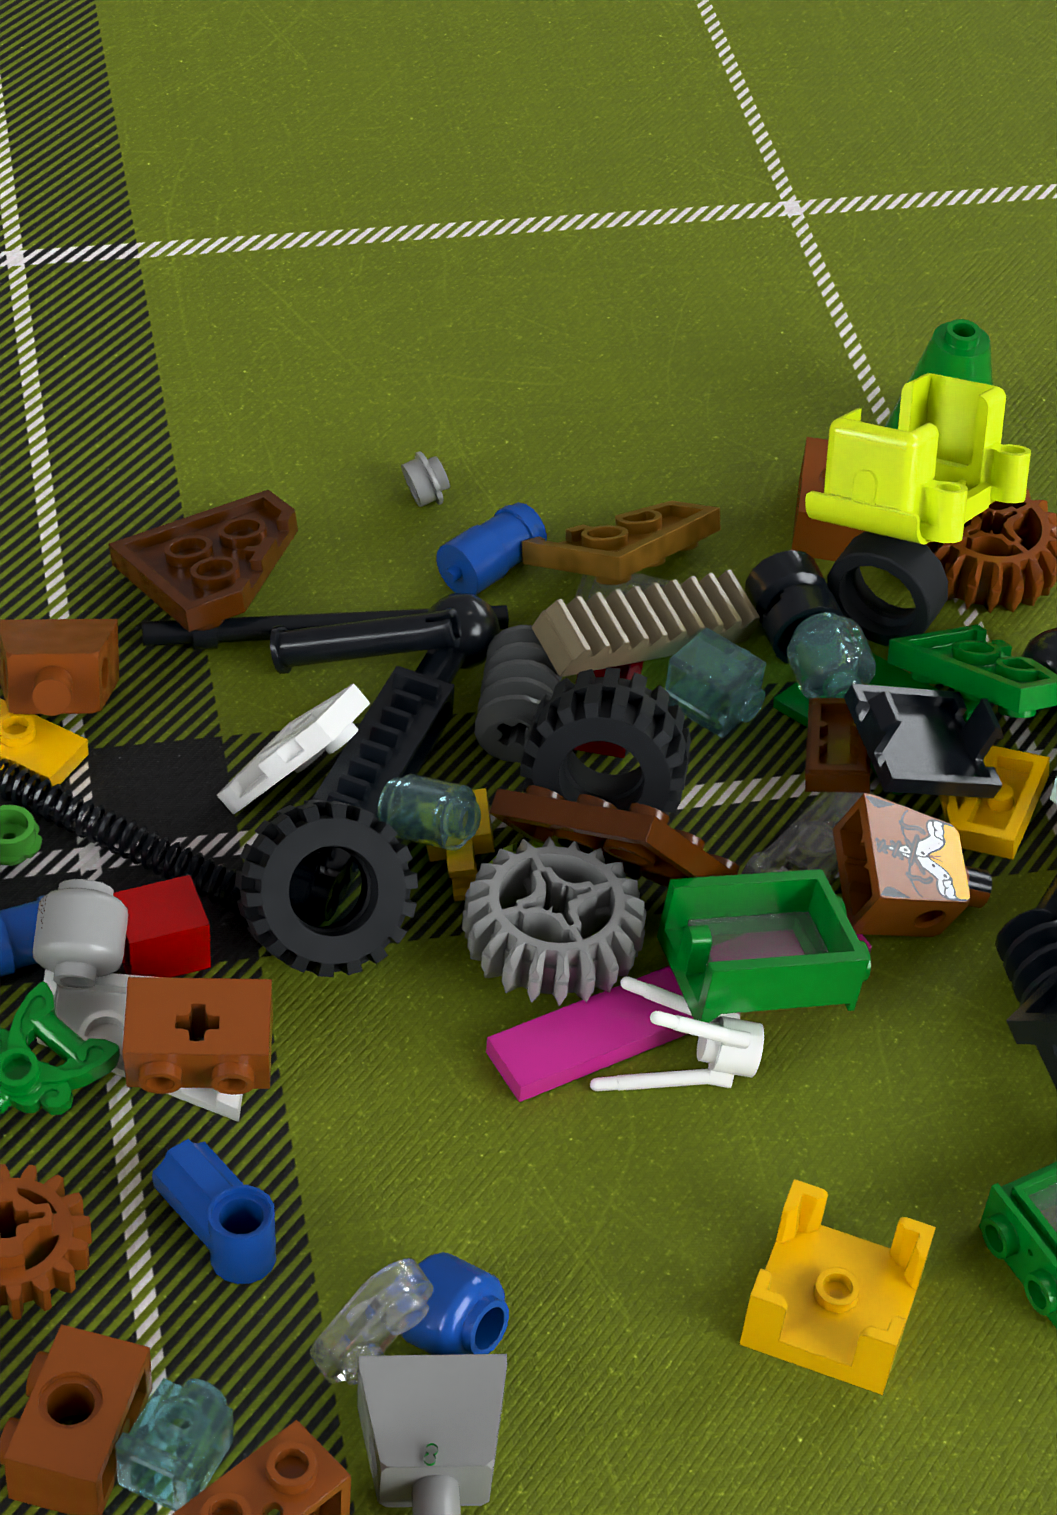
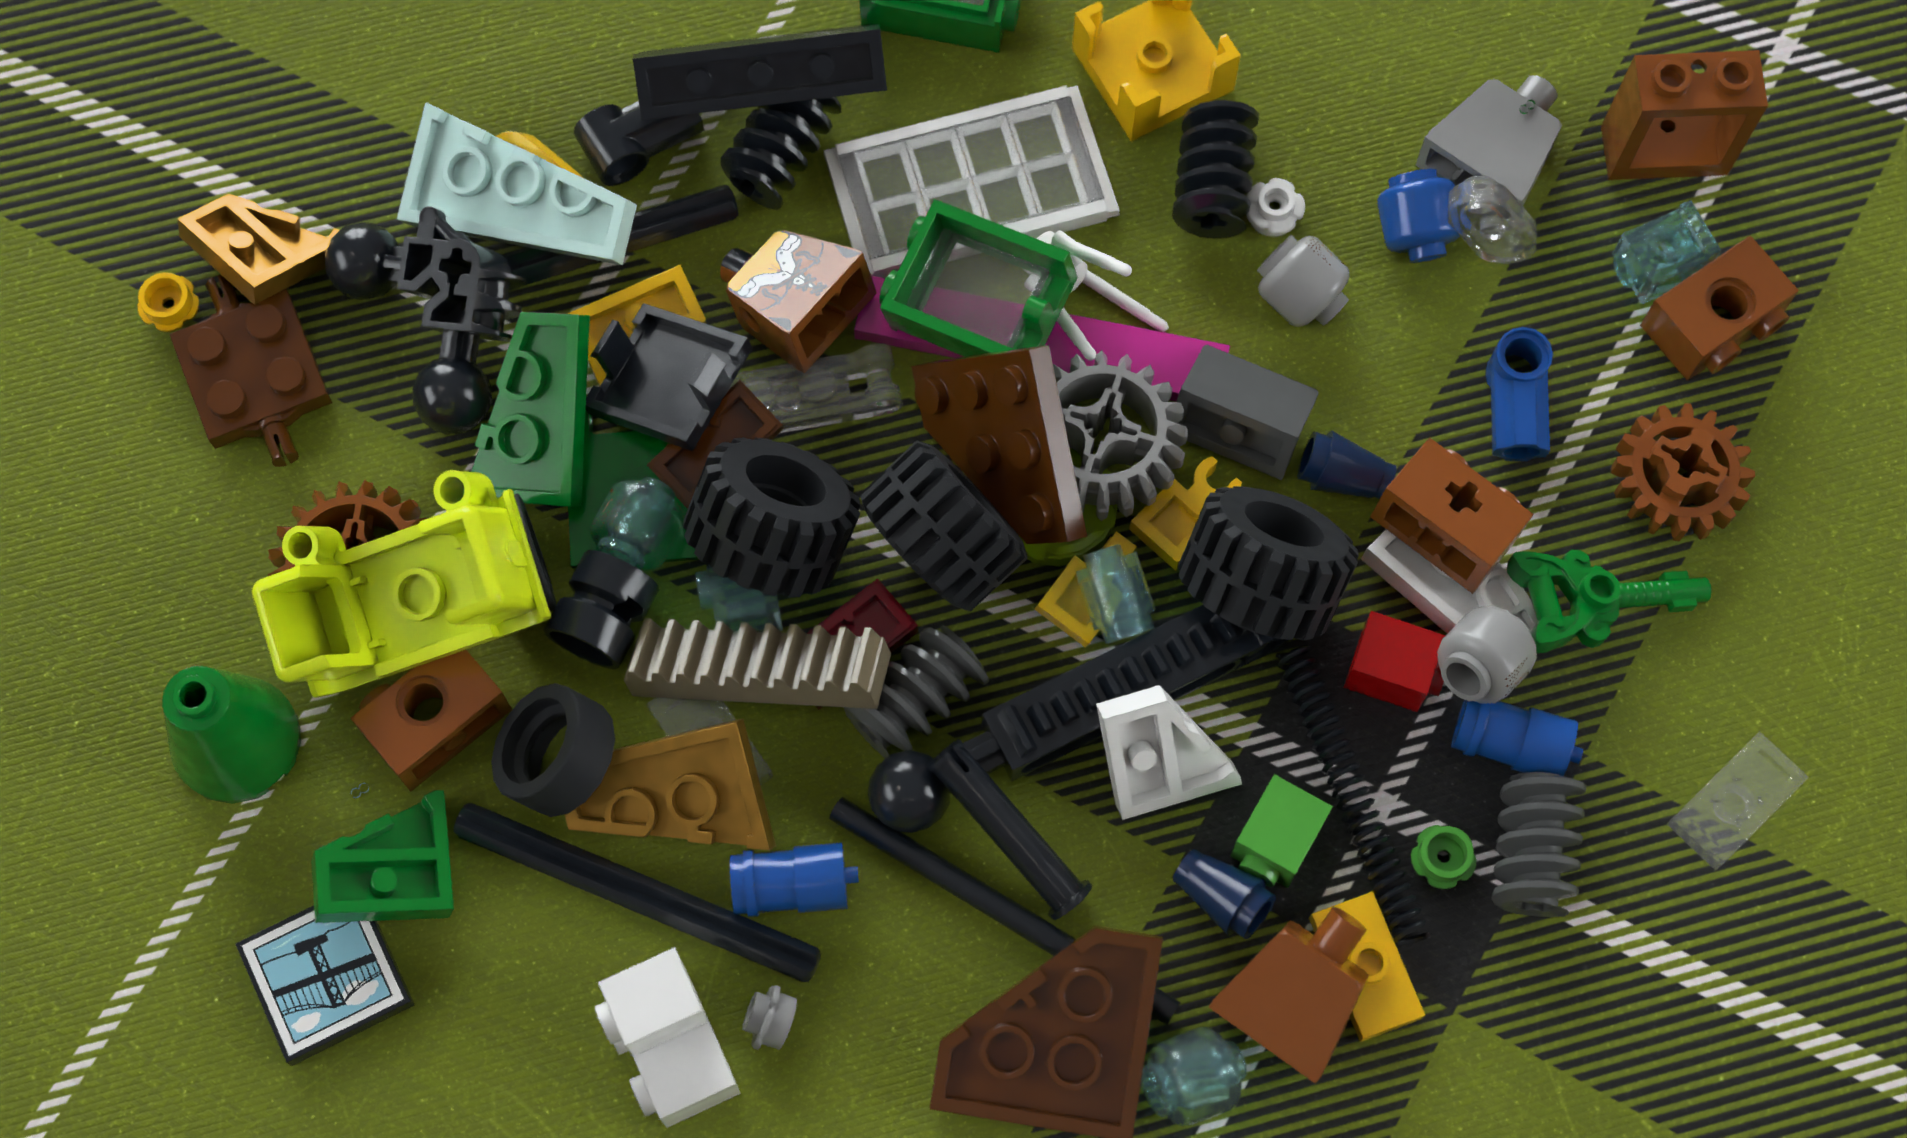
camera: 135 degrees left, 25 degrees up
(96, 588) = (1193, 1076): none -> clear light blue head
(156, 768) = (1280, 832): none -> bright green brick
(167, 713) = (1225, 893): none -> dark blue cone
(329, 1053) = (1343, 467): none -> dark blue cone
(434, 938) = (1172, 517): none -> yellow plate
(461, 1037) = (1244, 411): none -> dark grey panel
(482, 426) = (665, 1028): none -> white brick
(504, 1174) = (1304, 281): none -> light grey head
(590, 1255) = (1271, 221): none -> white plate
(597, 497) = (637, 892): none -> black axle
(678, 1218) = (1215, 168): none -> black piece
(727, 507) = (579, 763): none -> black tyre
(731, 365) = (322, 981): none -> tile
(755, 411) = (388, 869): none -> green wing
(789, 684) = (771, 517): none -> black tyre
(873, 1090) = (1010, 162): none -> clear piece

